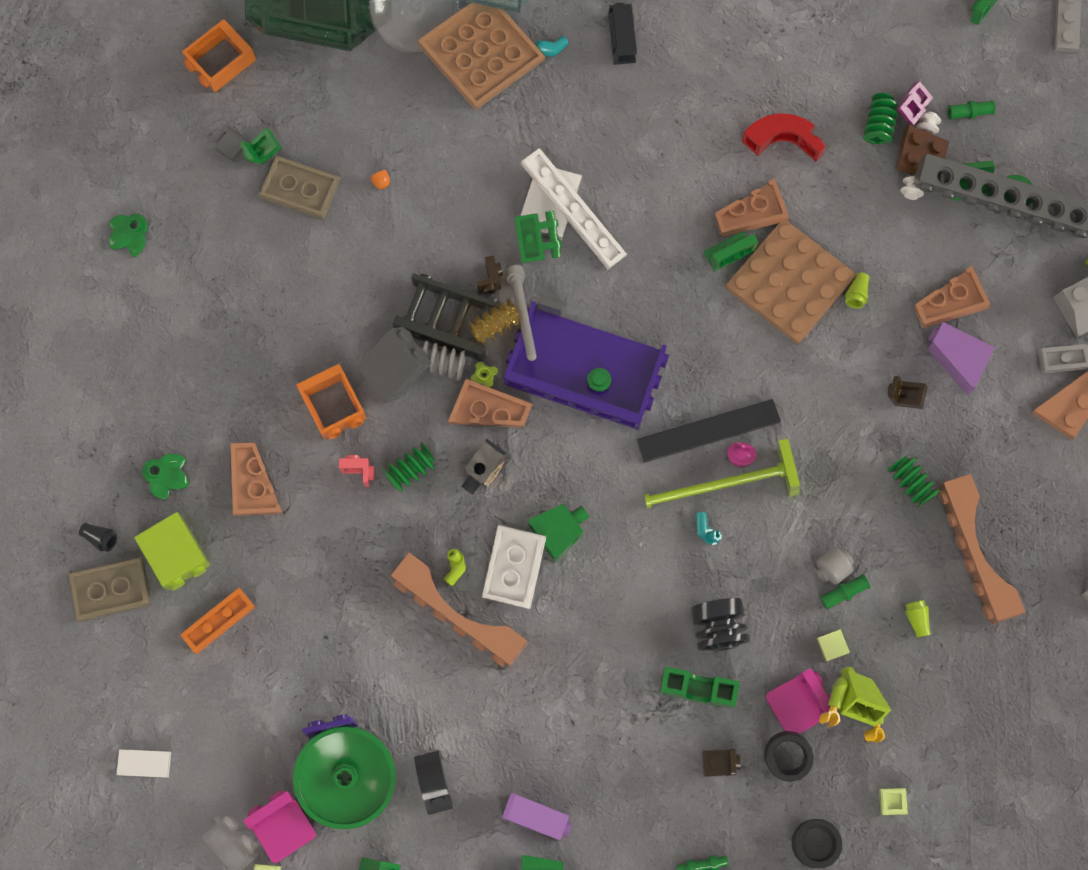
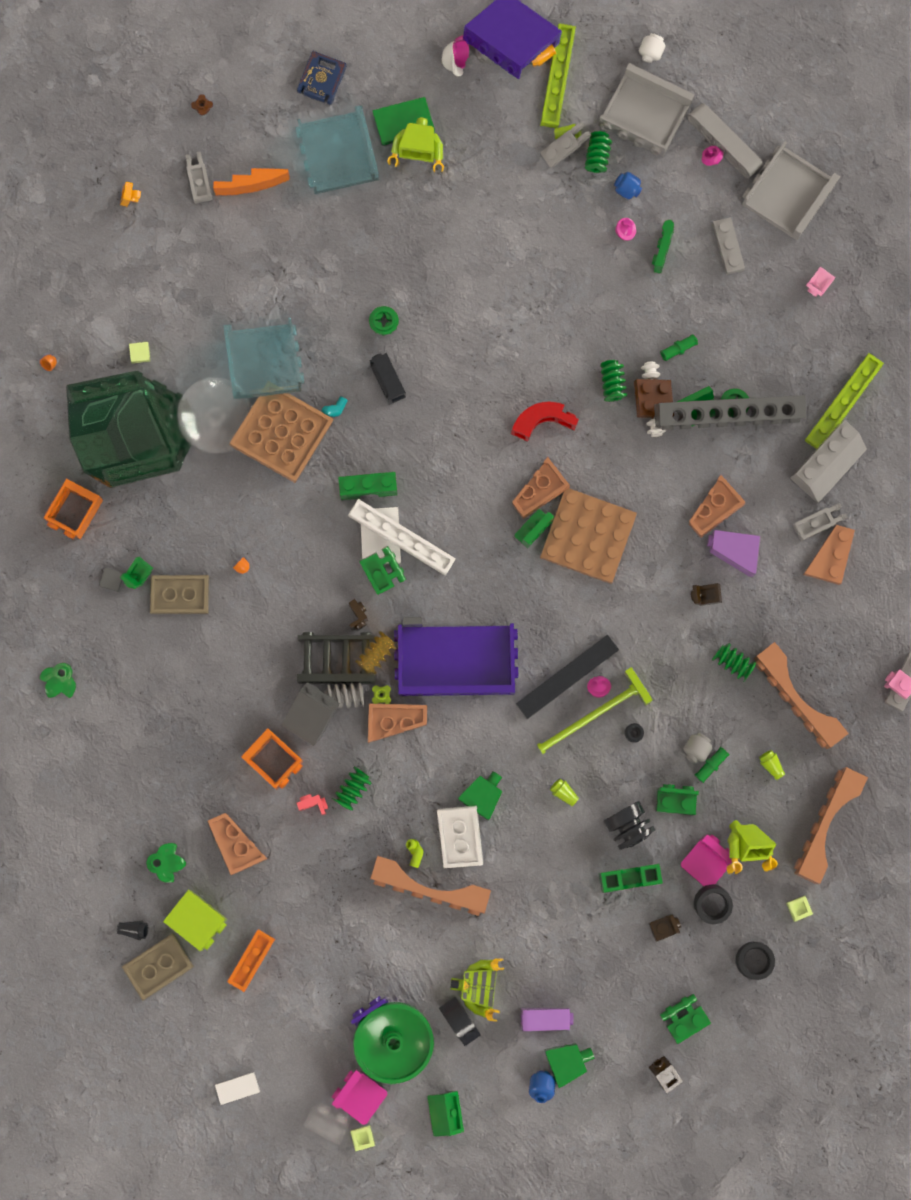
camera: 25 degrees left, 5 degrees up
(471, 749) = (479, 987): none -> torso
(489, 457) = (413, 760): torso -> none
(516, 276) = (377, 608): light grey piece -> none
(570, 141) = (358, 485): none -> green arch
(599, 379) = (471, 667): green plate -> none
(656, 560) = (564, 792): none -> lime cone
(704, 531) = (592, 756): teal arm -> none
(770, 517) = (634, 726): none -> black plate
(788, 618) = (676, 800): none -> green bracket
(833, 645) = (716, 808): yellowish green tile -> none
(857, 293) = (642, 526): lime cone -> none
(914, 102) = (633, 358): slope -> none
(931, 750) = (813, 862): none -> nougat arch

